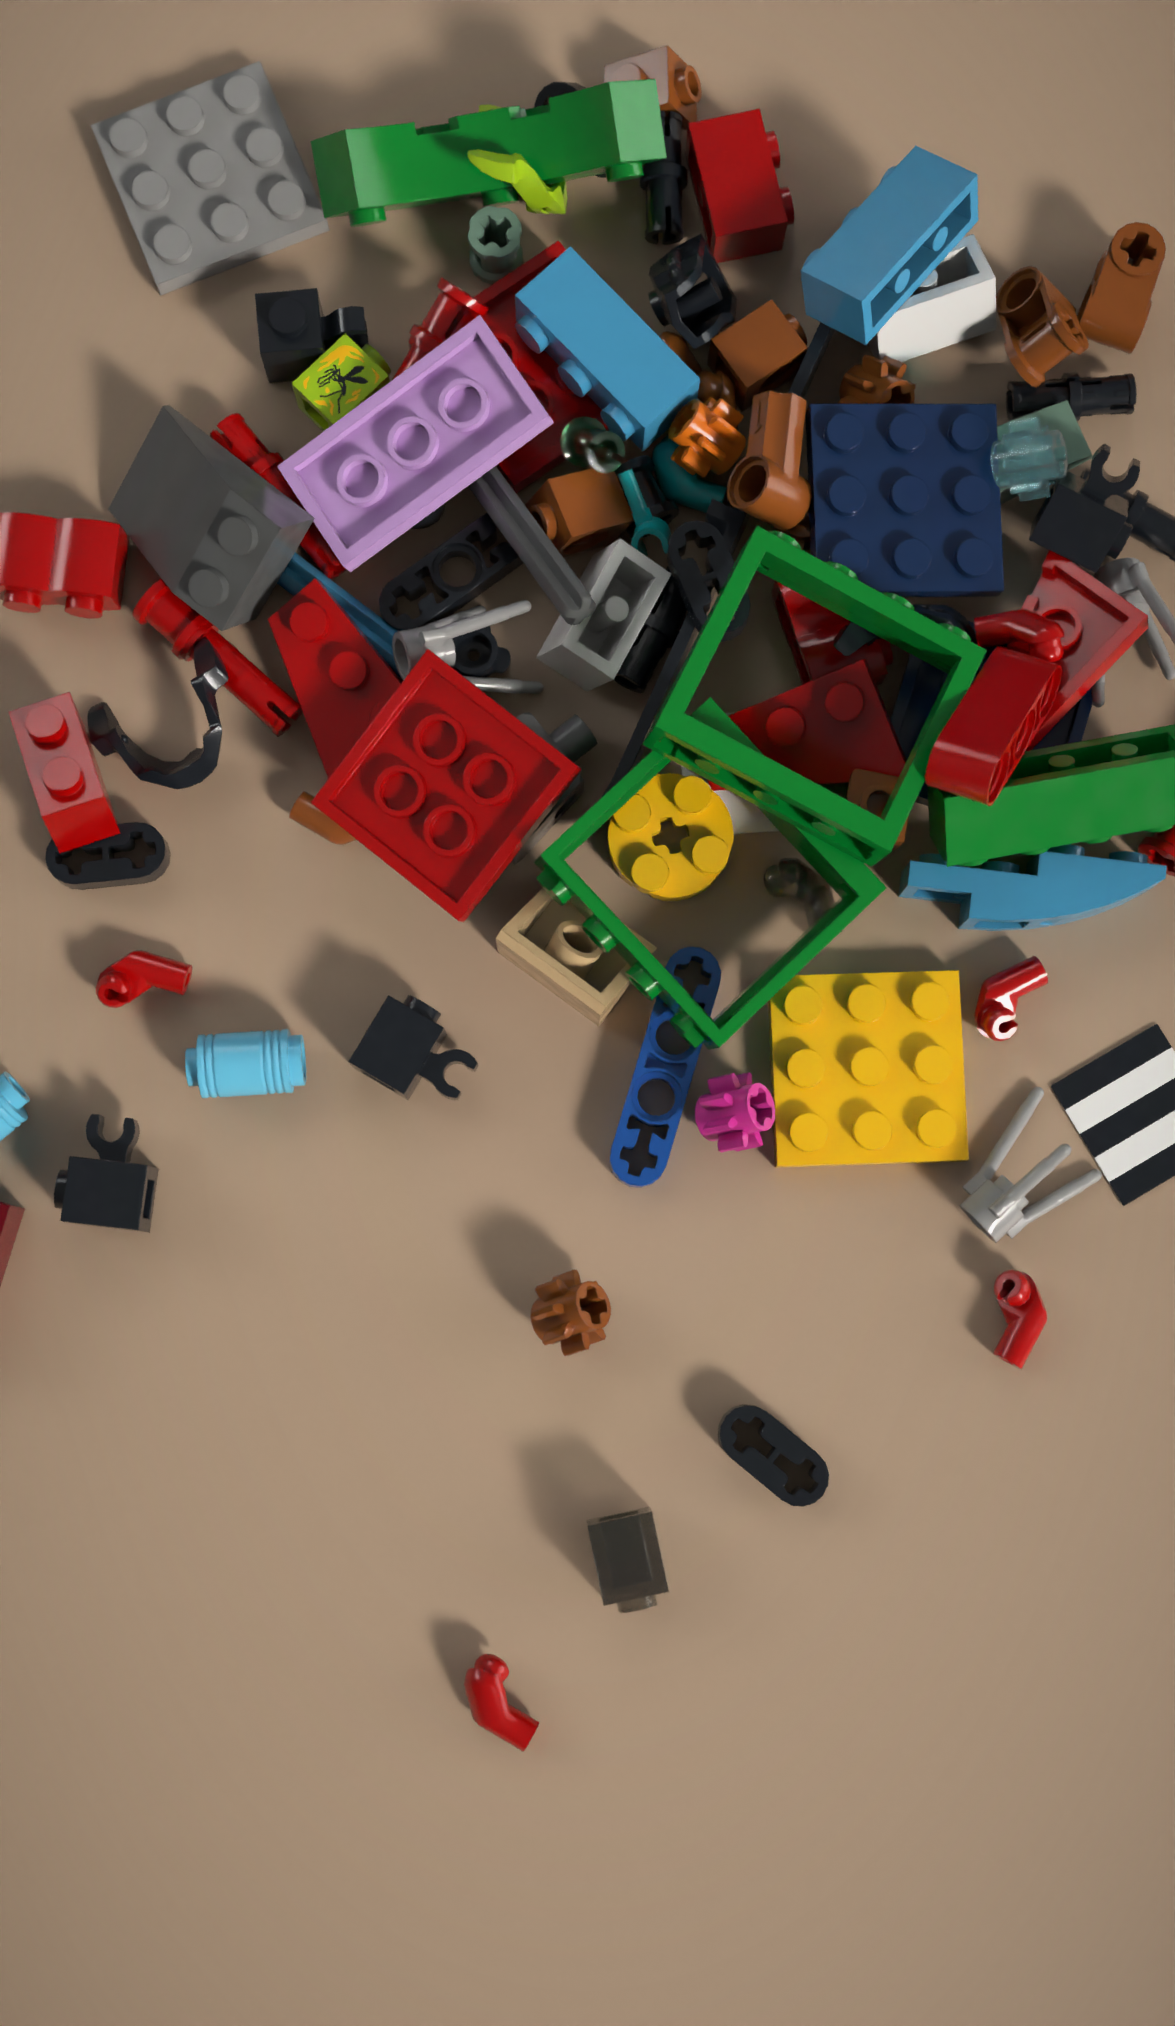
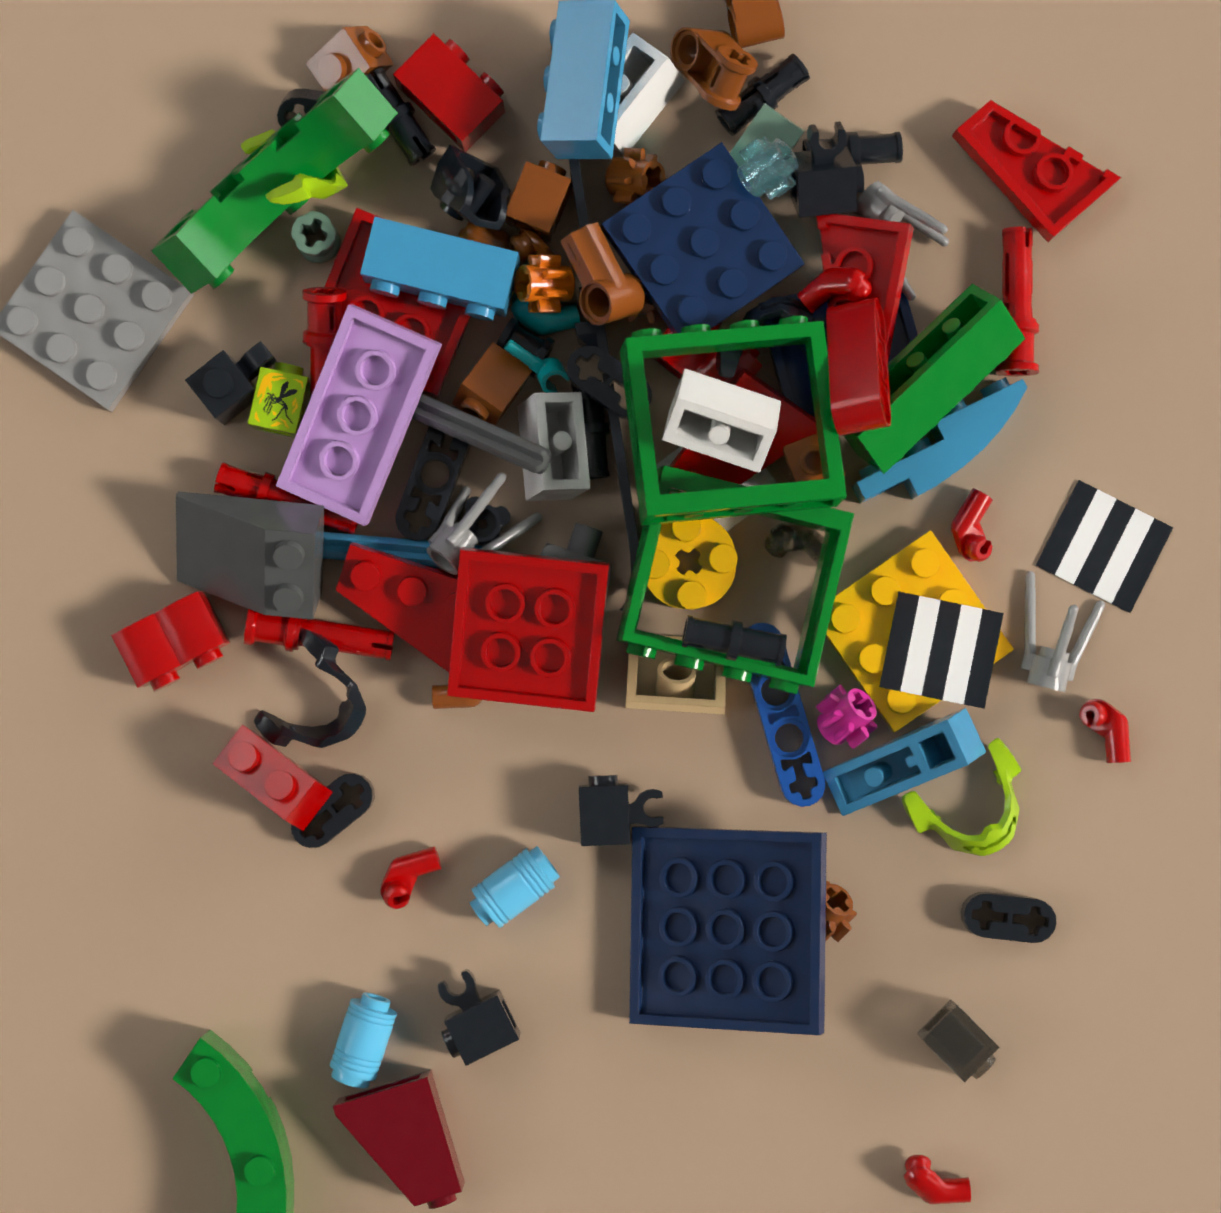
camera: 25 degrees left, 5 degrees up
(451, 1260) = (728, 929): none -> dark blue plate
(600, 448) = (469, 338): clear green pin -> none
(662, 934) = (734, 640): none -> black pin
(768, 1204) = (905, 762): none -> dark azure slope
(804, 670) = (722, 420): none -> white brick
(813, 1351) = (994, 836): none -> lime helmet
(887, 1106) = (941, 650): none -> sticker

